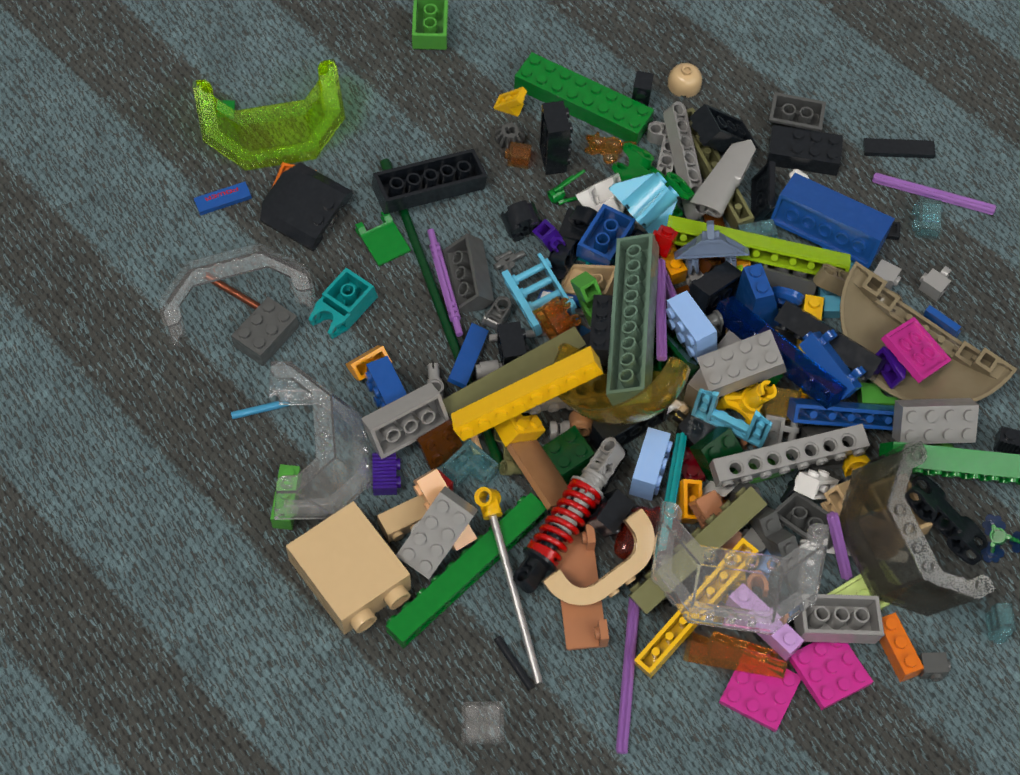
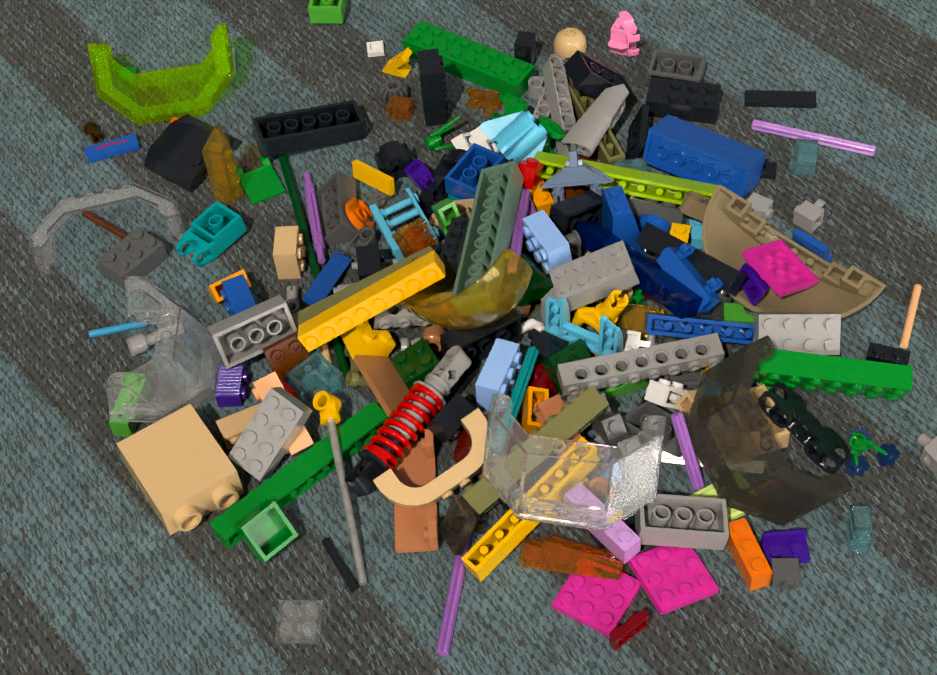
camera: 10 degrees right, 10 degrees down
(197, 176) = (91, 130): none -> dark brown pin
(287, 426) = (140, 342): none -> light grey piece
(350, 231) = (222, 168): none -> clear yellow slope
(427, 326) = (289, 252): none -> tan brick
(442, 632) = (265, 530): none -> green piece
(484, 81) = (375, 48): none -> white tile
(491, 281) = (358, 213): none -> orange tile
(501, 238) = (373, 177): none -> yellow tile
(627, 624) = (459, 525): none -> clear smoke tile
(739, 73) = (622, 38): none -> bright pink piece
(799, 719) = (633, 626): none -> dark red plate
(931, 638) = (785, 545): none -> dark purple bracket

